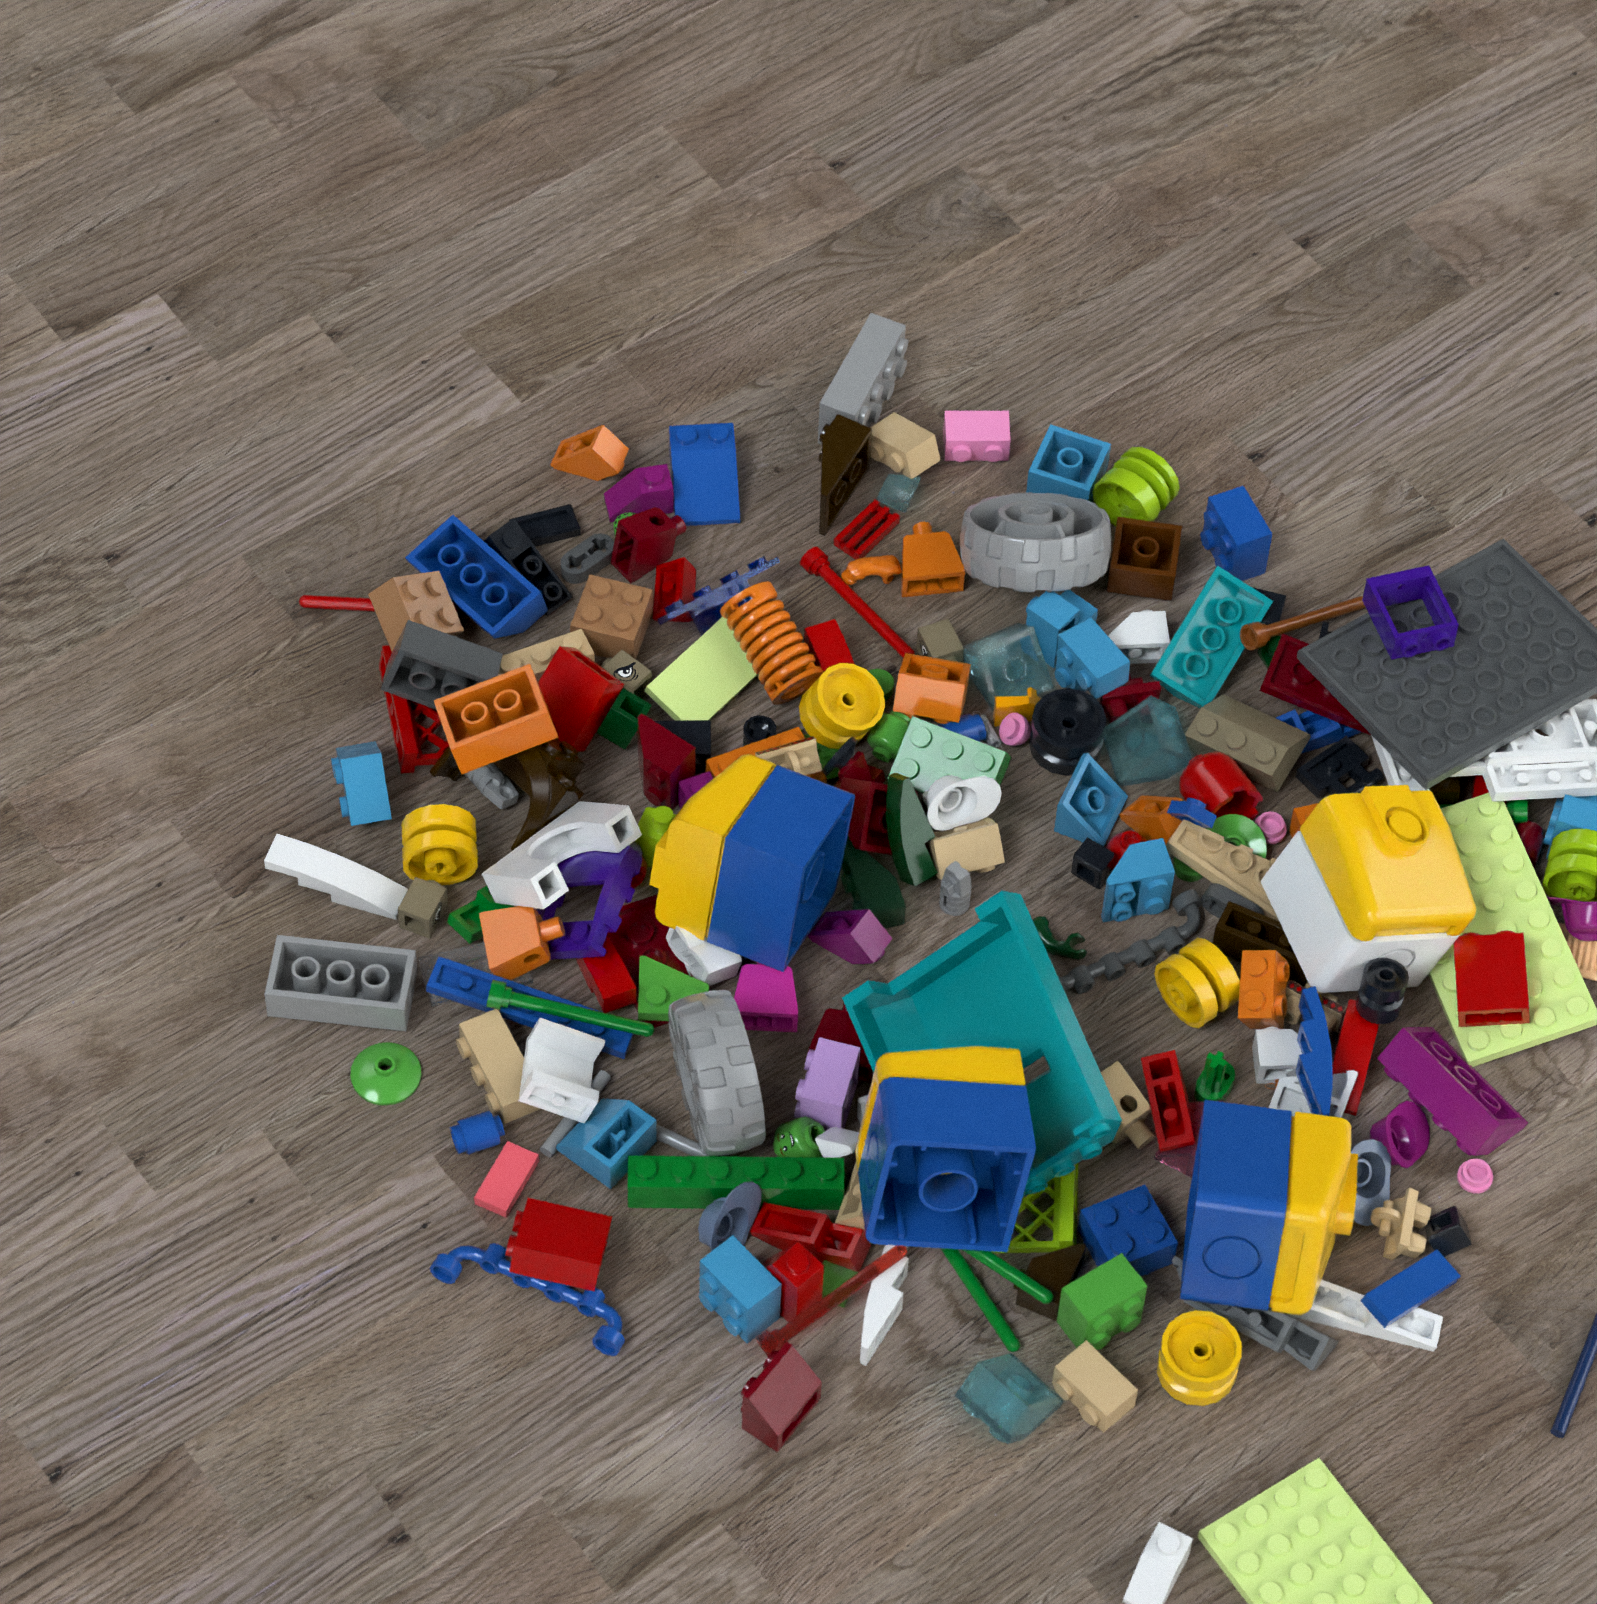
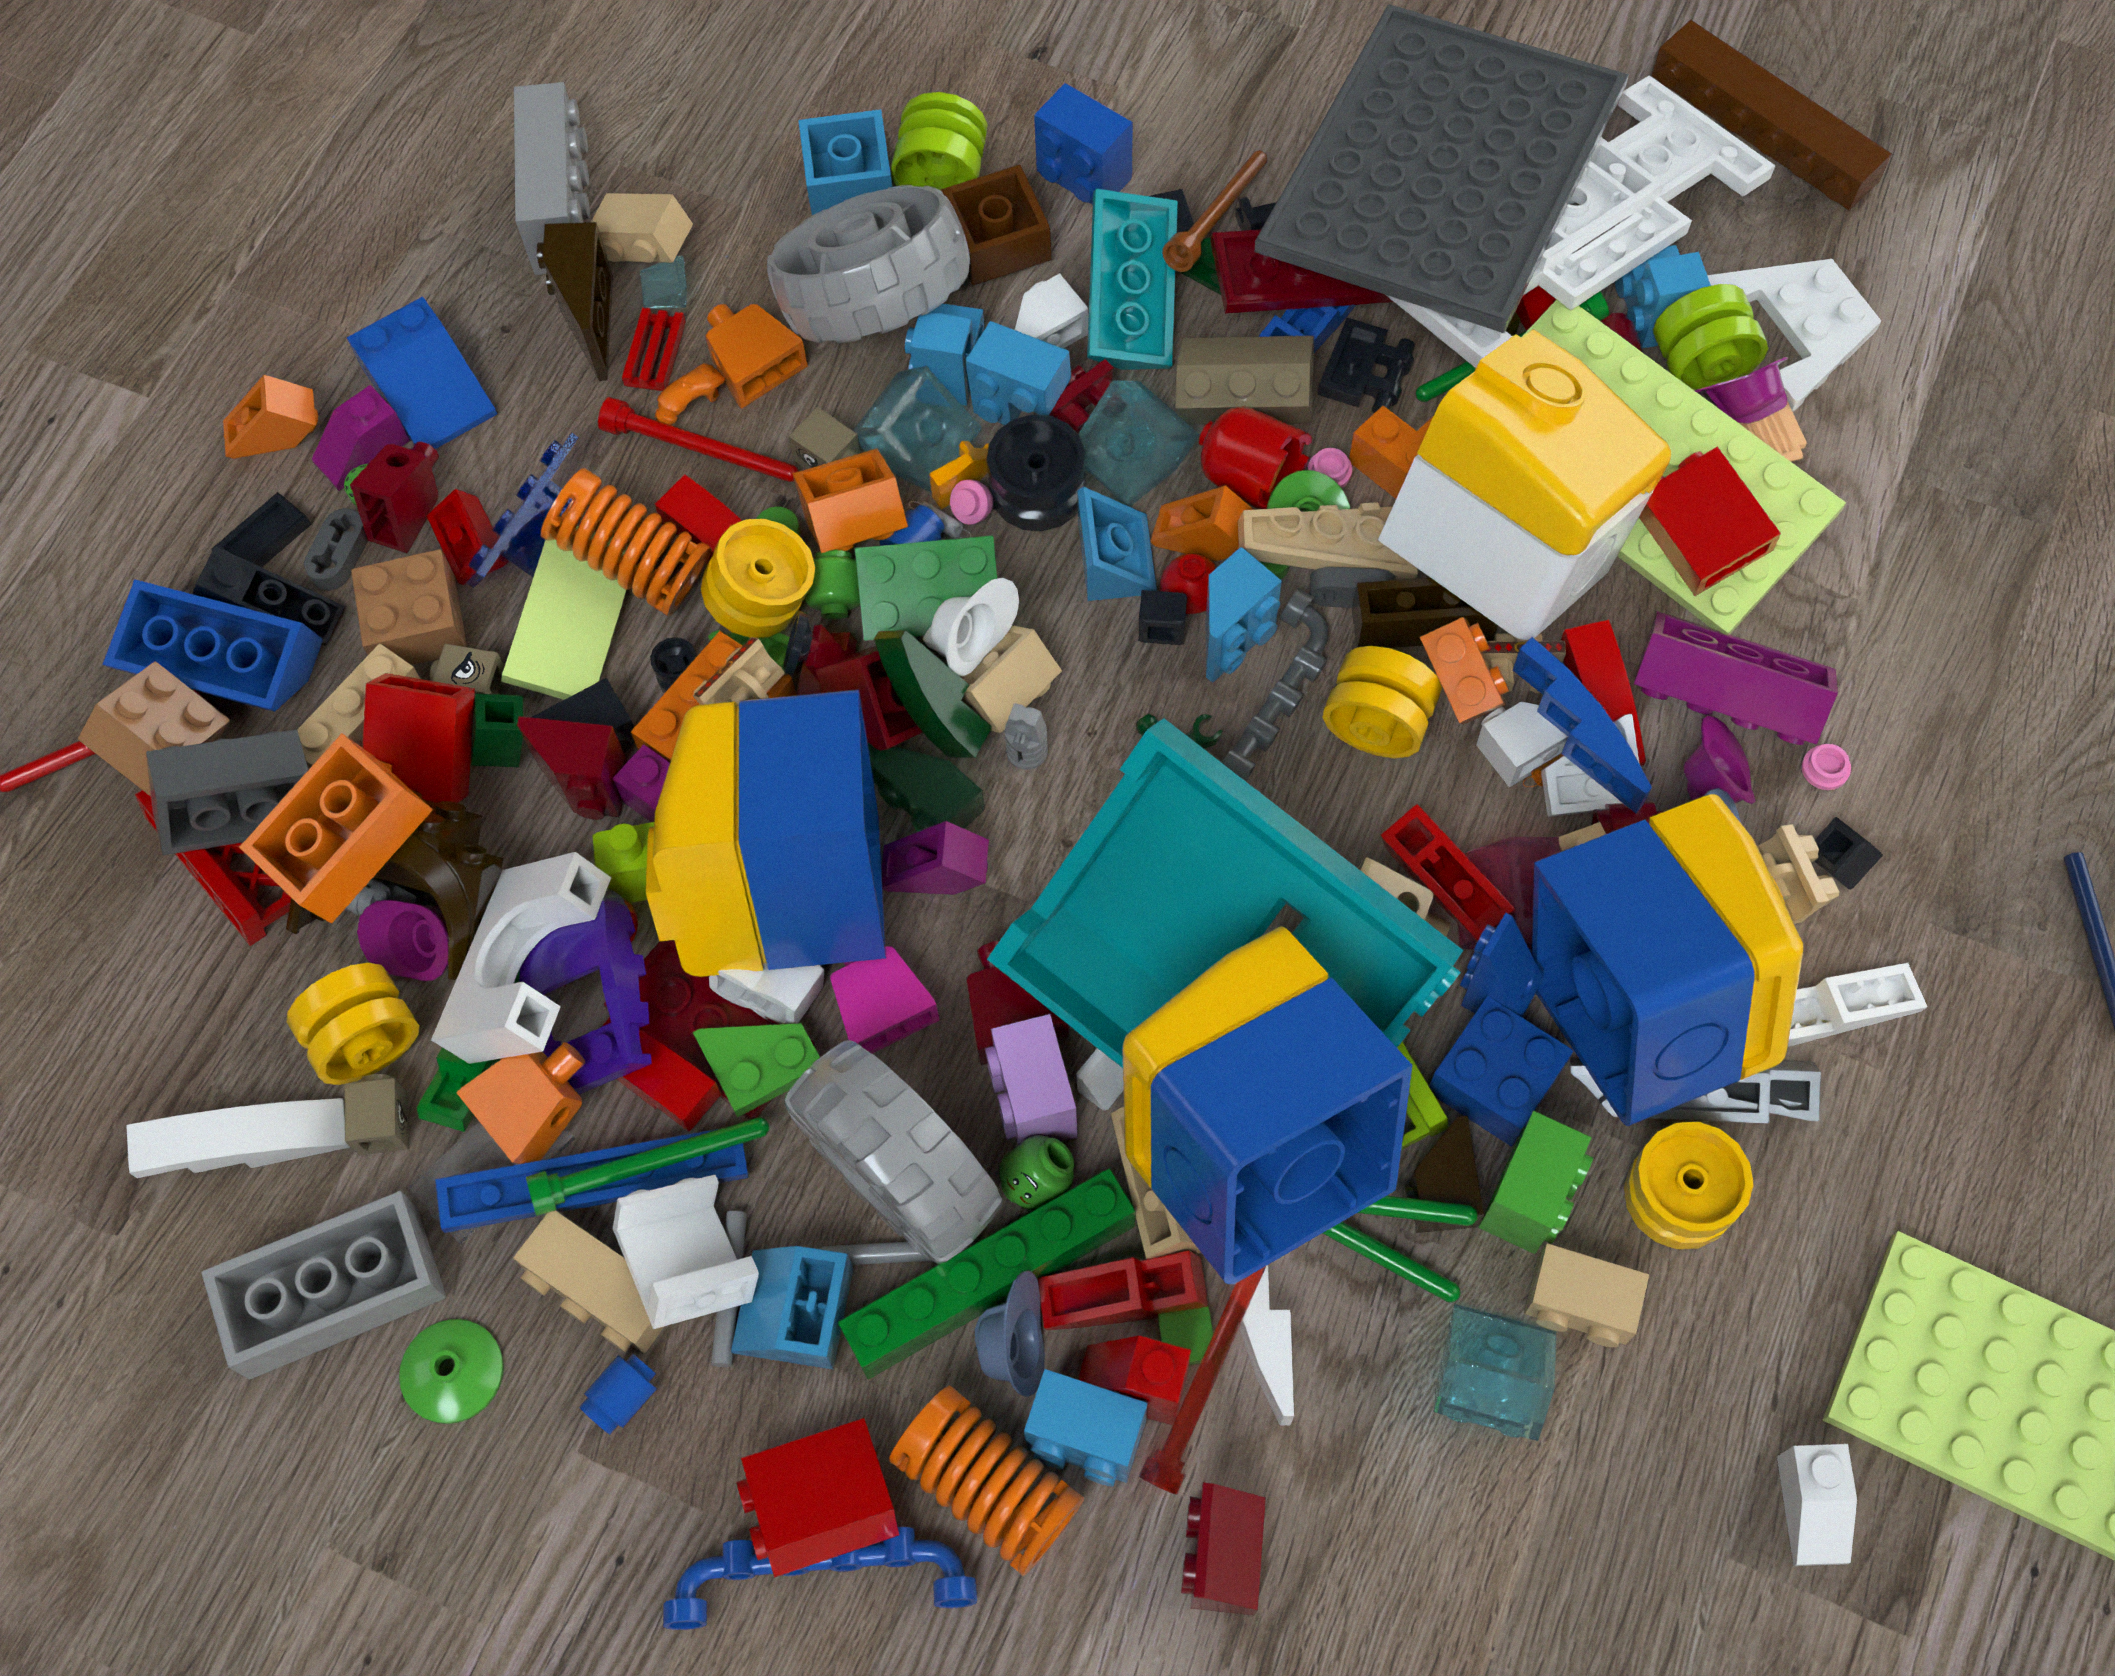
camera: 25 degrees left, 10 degrees up
(364, 783) = (200, 983): dark azure brick -> none
(497, 813) = (405, 938): none -> magenta piece
(506, 1179) = (692, 1433): coral tile -> none
(663, 1287) = (979, 1505): none -> orange piece
(837, 1142) = (1091, 1148): white slope -> none
(976, 436) = (716, 176): bright pink brick -> none
(1164, 1172) = (1501, 969): none -> blue slope
(1192, 811) = (1250, 495): blue plate -> none
(1211, 1082) = (1470, 821): green piece -> none
(1382, 990) = (1607, 600): black wheel -> none
(1410, 1288) = (1858, 951): blue tile -> none
(1415, 584) = (1357, 96): dark purple window -> none

